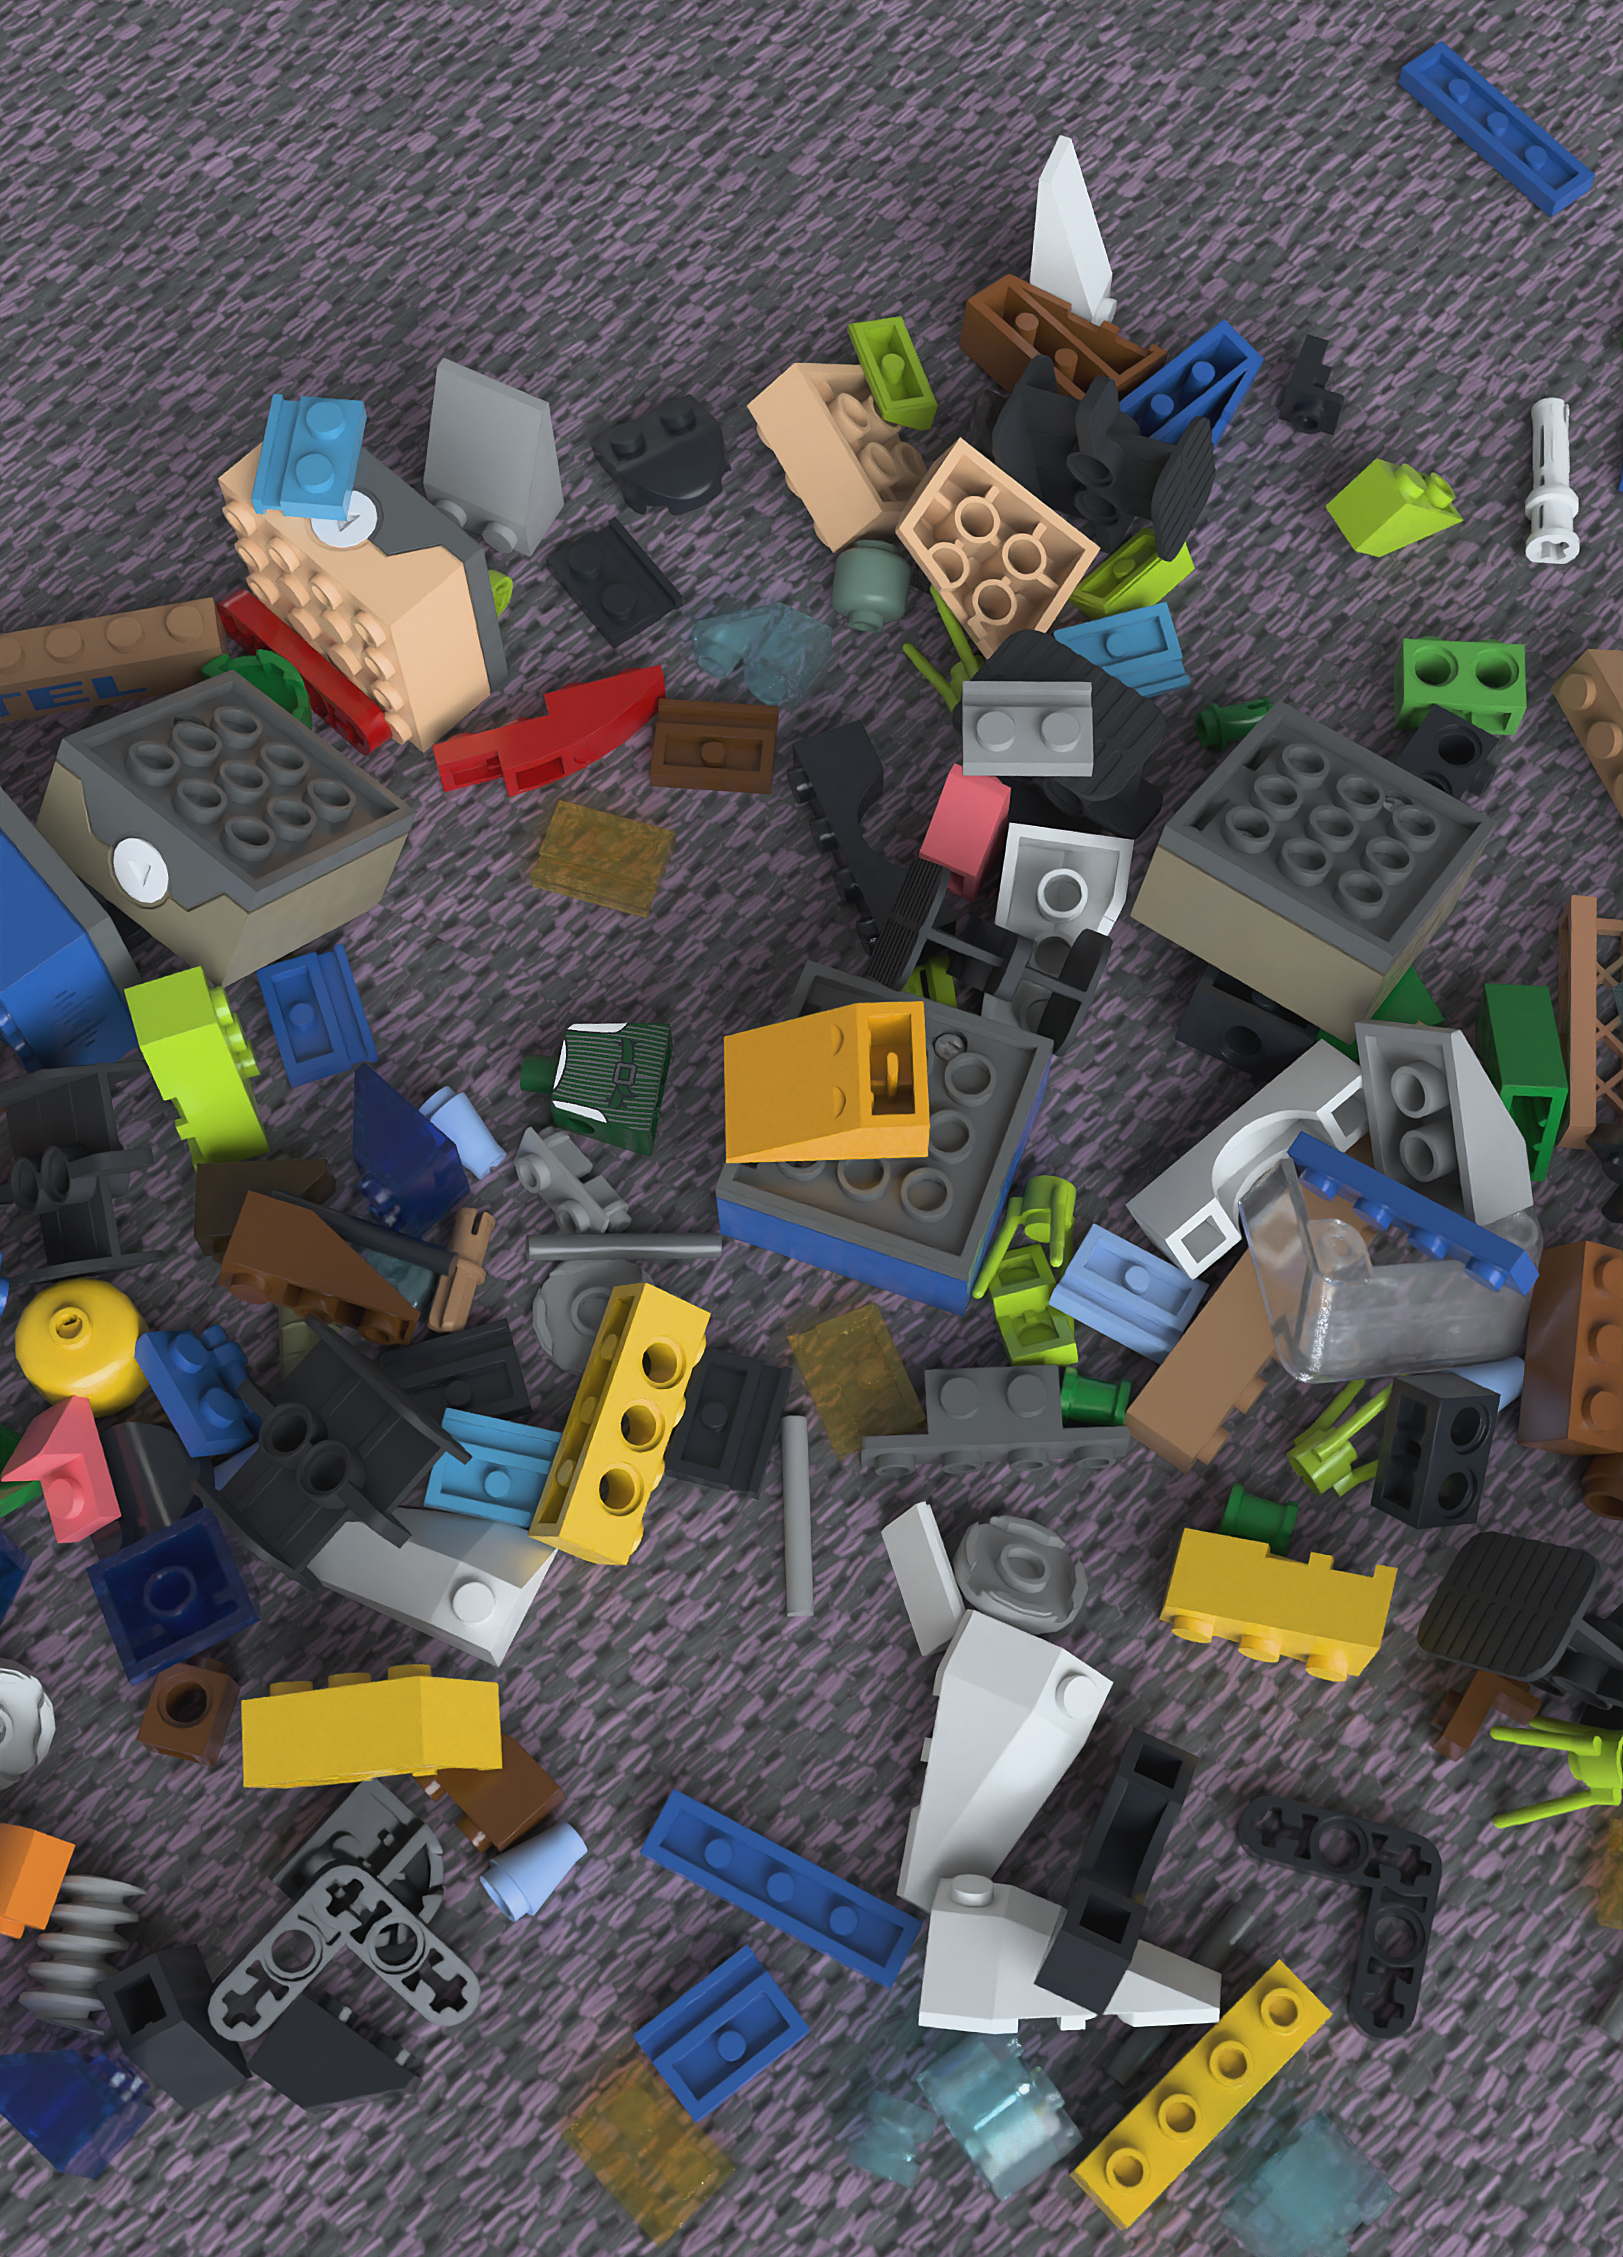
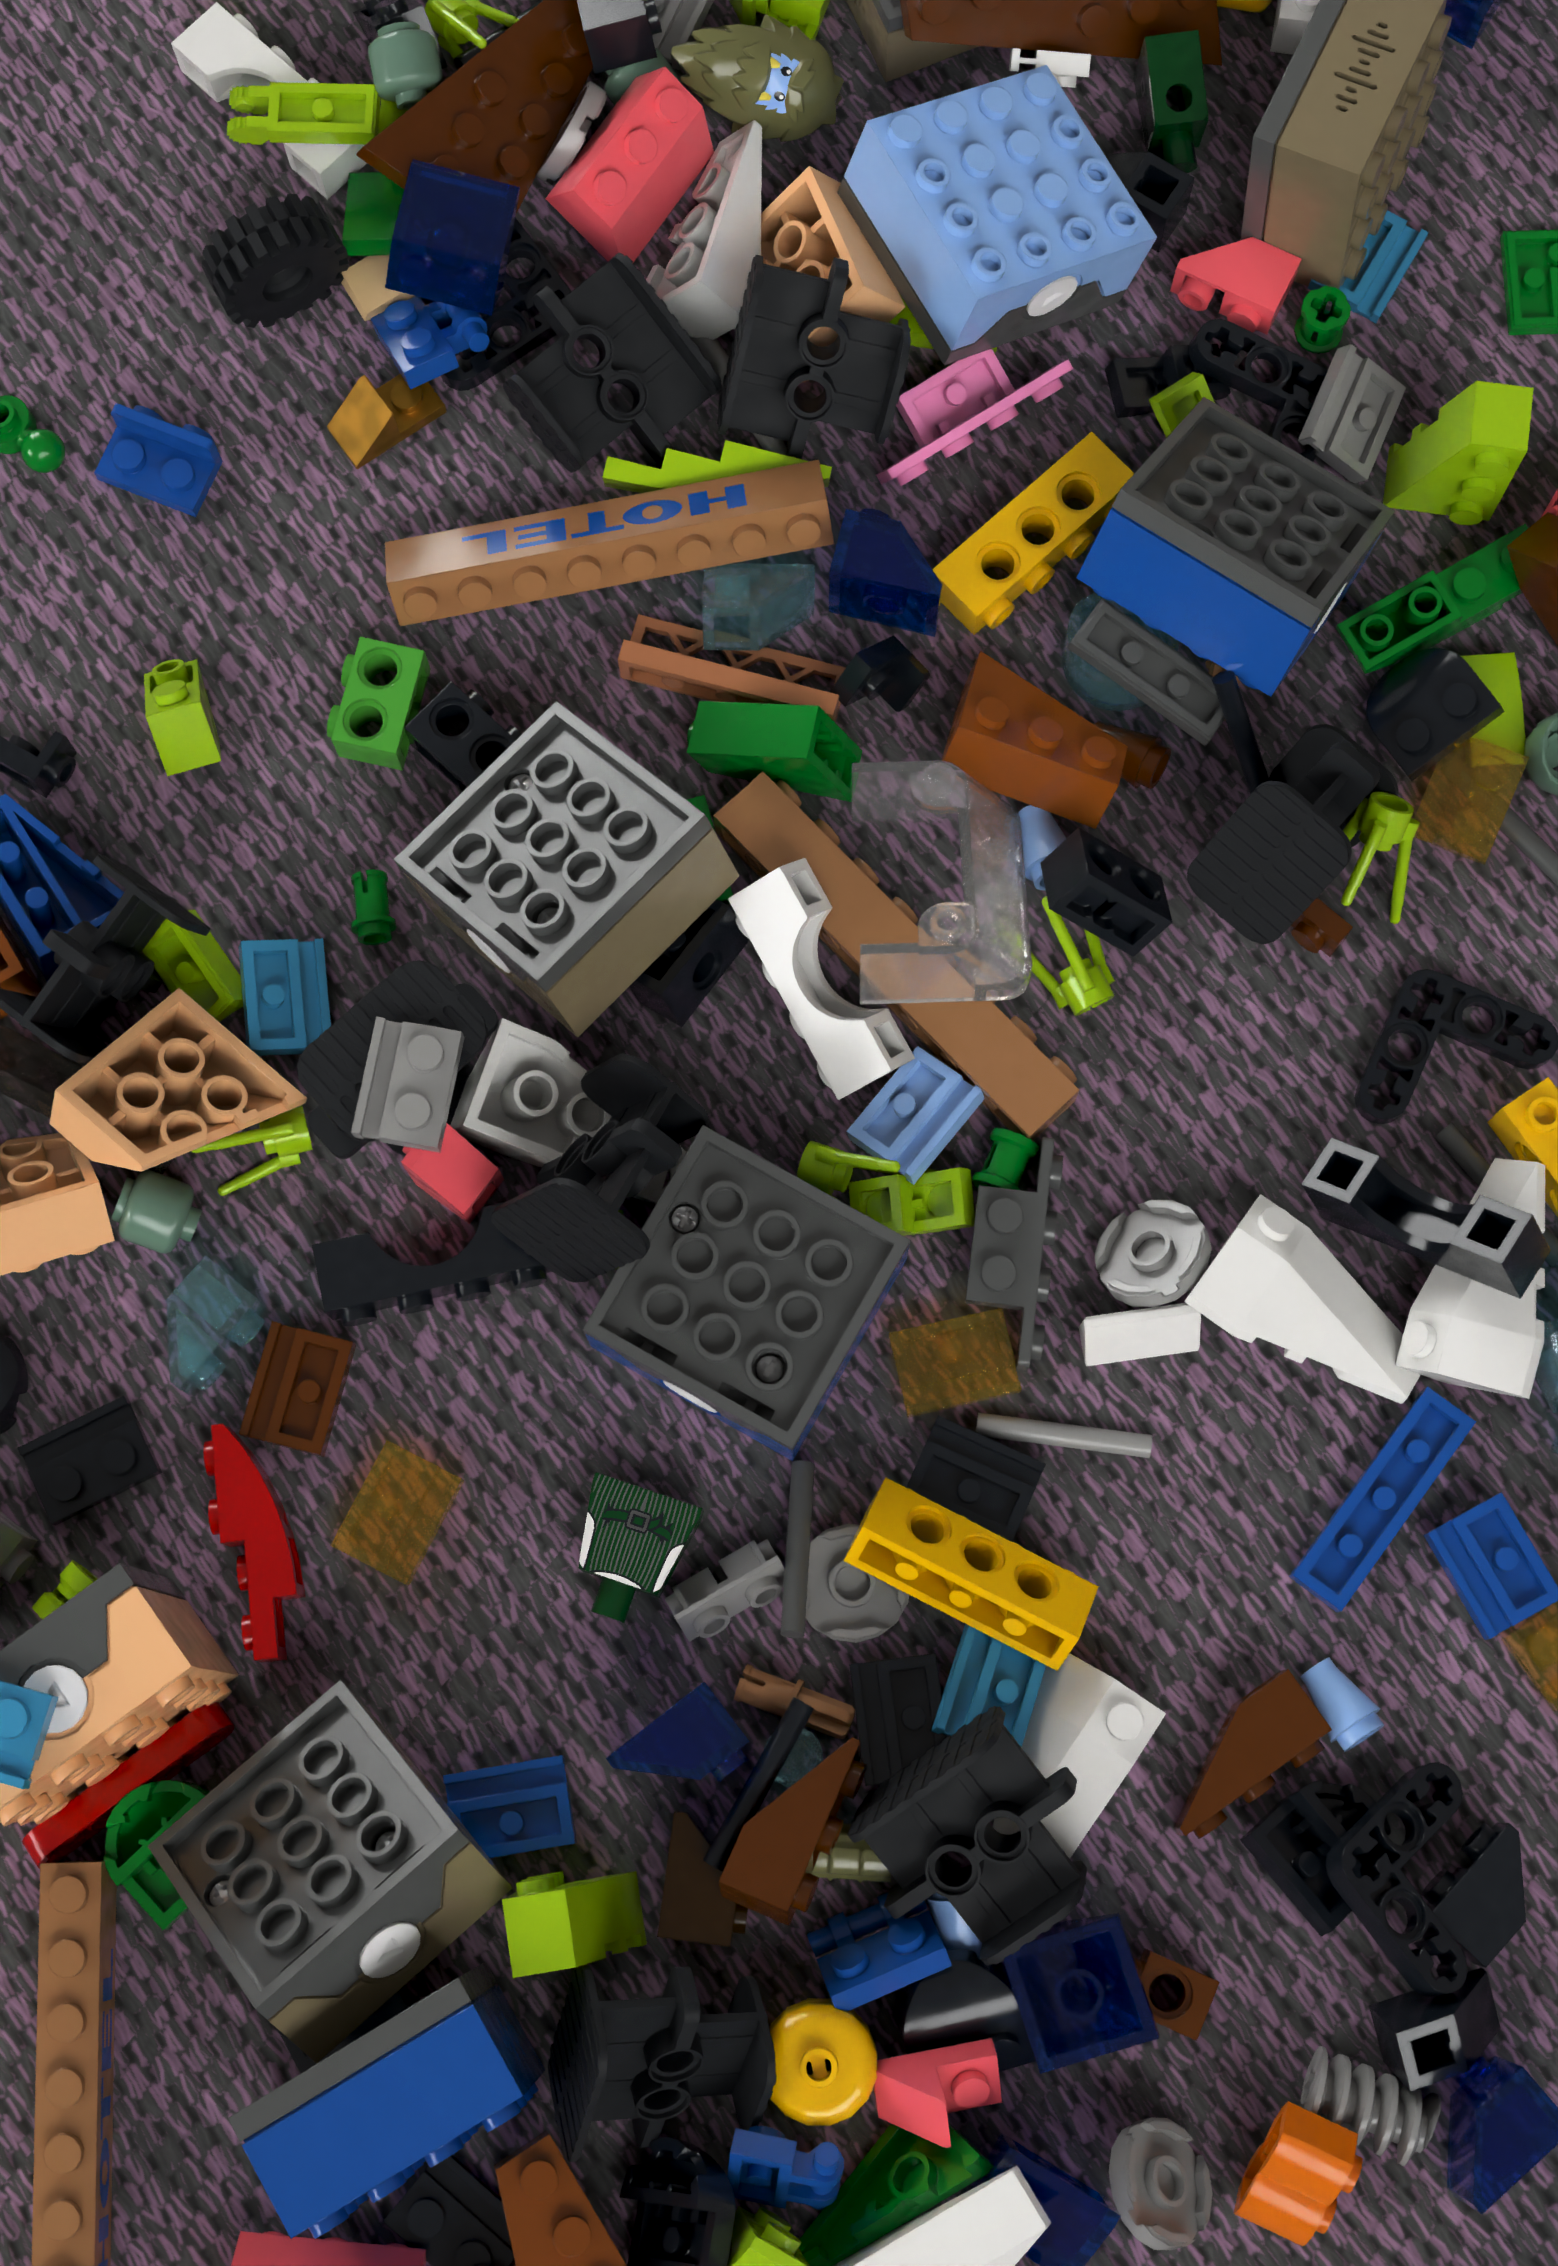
camera: 80 degrees left, 10 degrees up
(369, 1729) = (1233, 1826): yellow wedge -> none
(464, 1126) = (656, 1686): light blue cone -> none
(829, 1086) = (727, 1329): light orange slope -> none
(1258, 1519) = (1130, 1050): green bush -> none
(1277, 1604) = (1209, 1048): yellow wedge -> none
(1430, 1226) = (937, 845): blue plate -> none
(1441, 1121) = (849, 820): light grey slope -> none
(1552, 501) = (202, 576): white pin -> none

